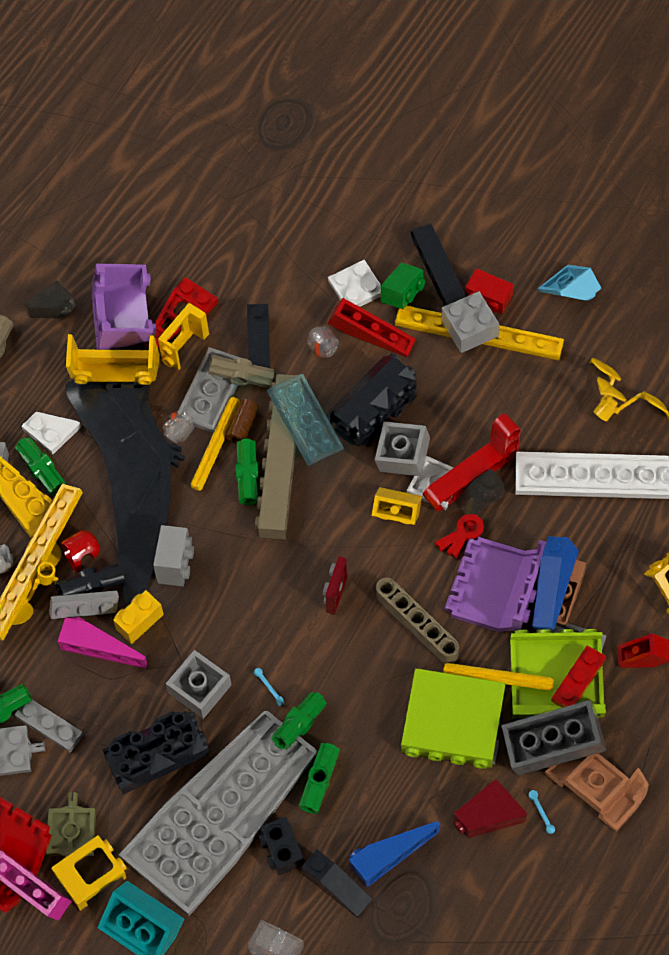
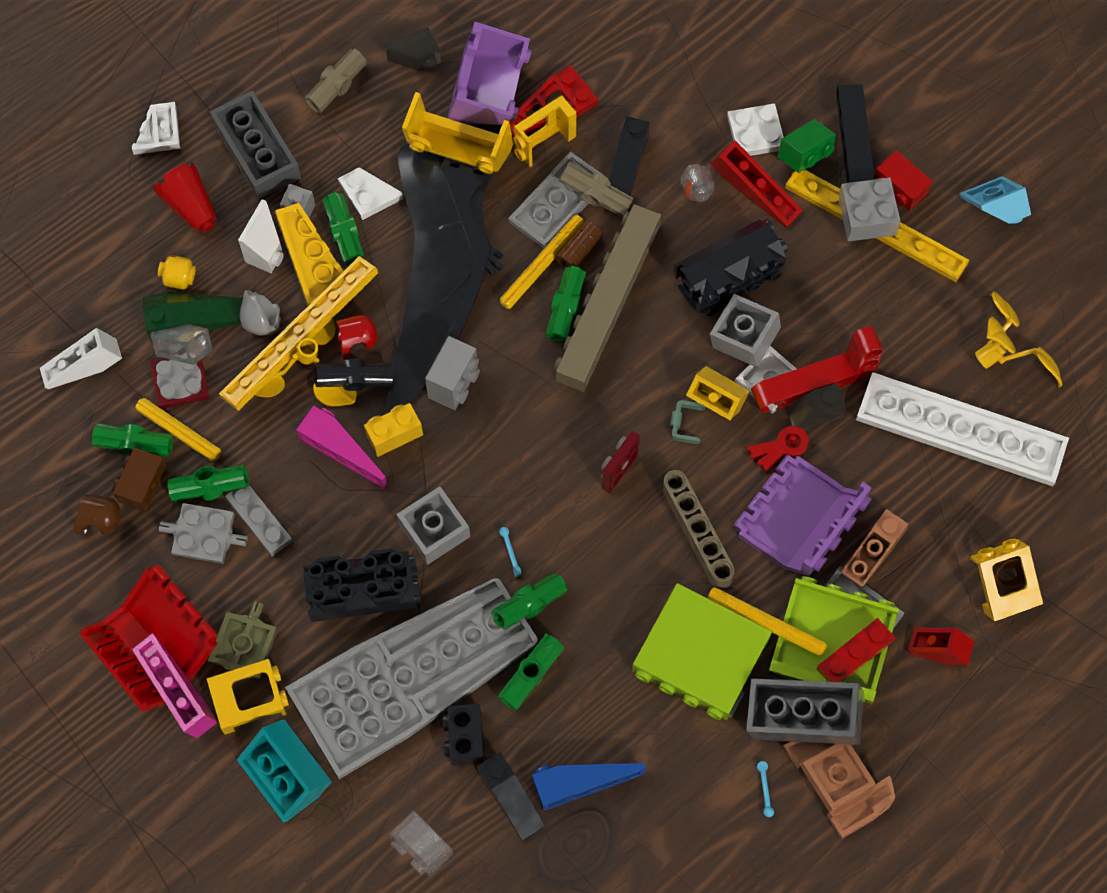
camera: 15 degrees right, 5 degrees up
(83, 604) = (338, 397): light grey plate -> none
(178, 427) = (507, 231): clear head -> none
(305, 419) = (647, 265): clear light blue plate -> none
(369, 539) = (676, 421): none -> sand green piece
(489, 812) = (705, 770): dark red slope -> none
(554, 576) = (865, 530): blue slope -> none

